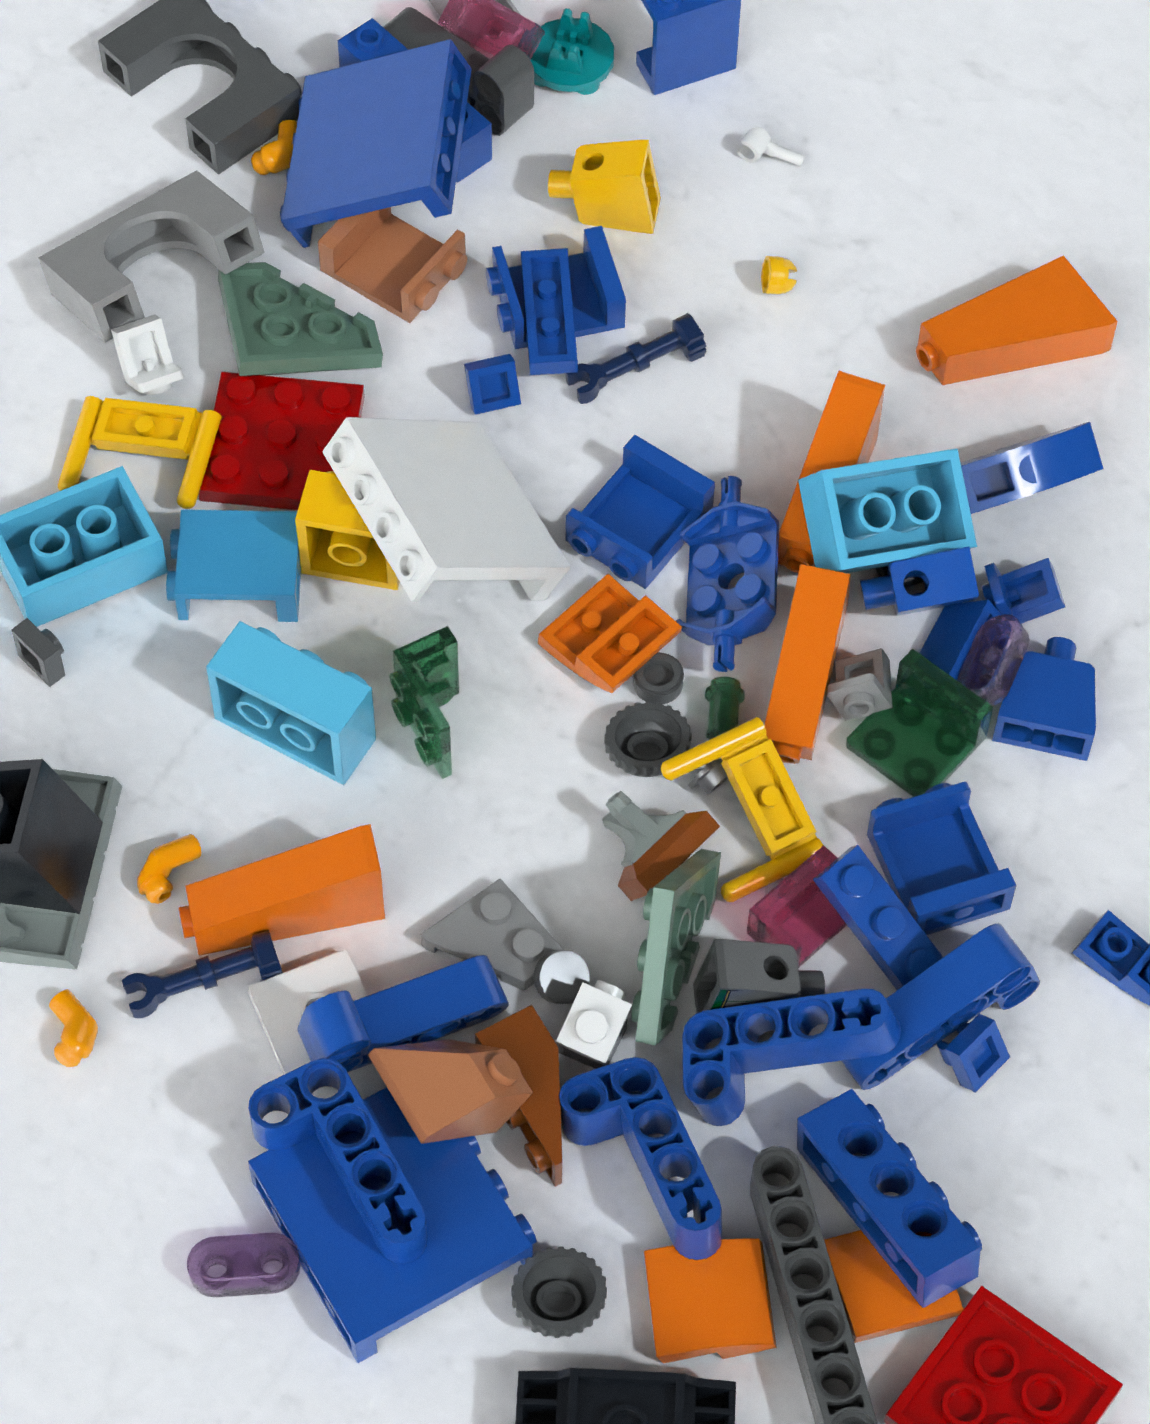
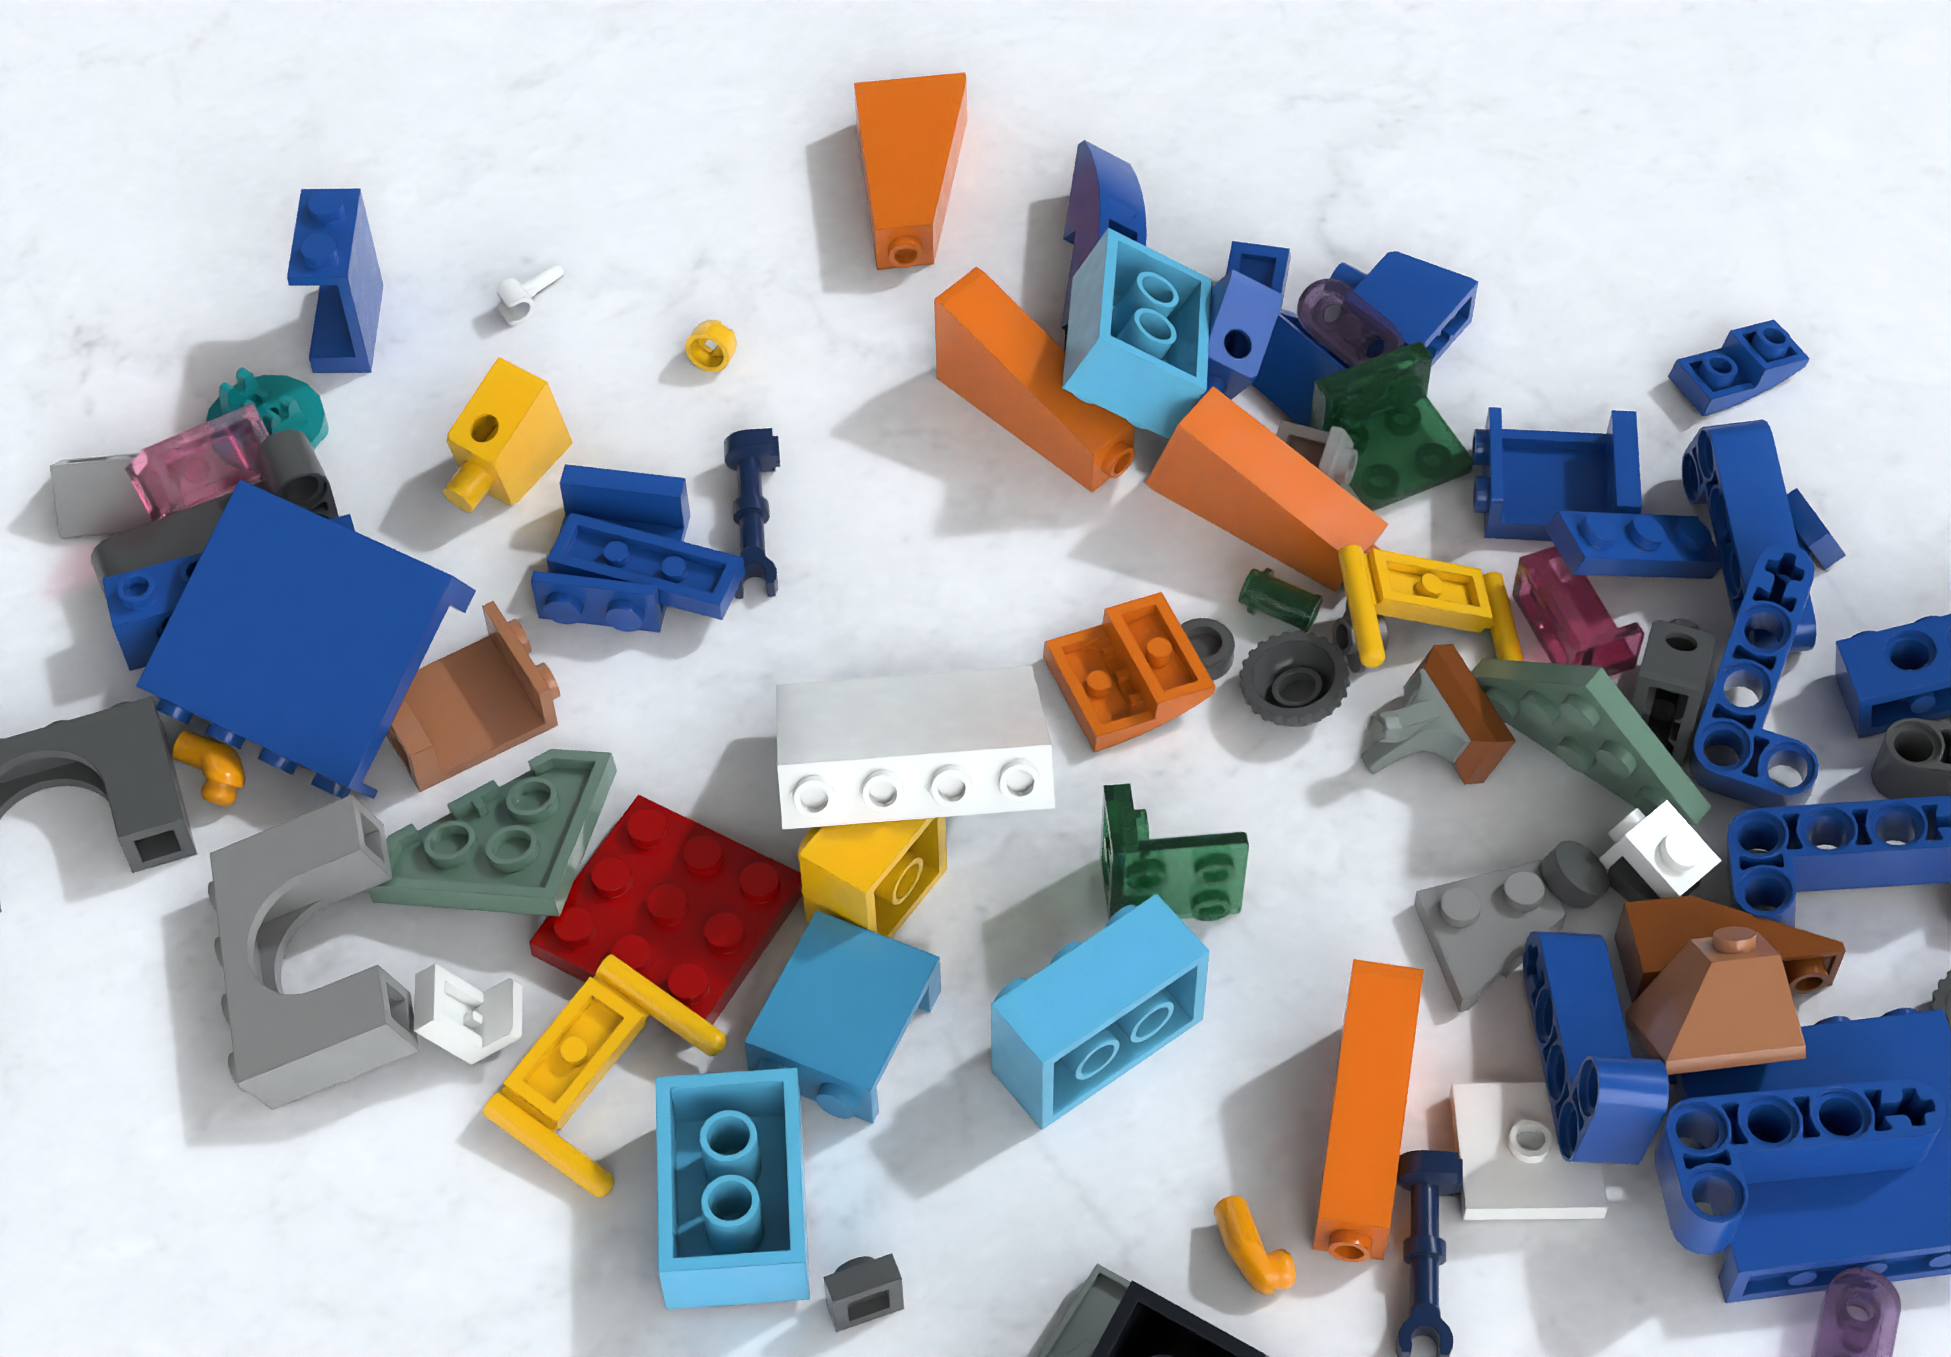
camera: 65 degrees left, 5 degrees down
(492, 384) = (713, 661): blue tile -> none
(640, 513) = (973, 582): blue panel -> none
(722, 545) = (1071, 495): blue plate -> none

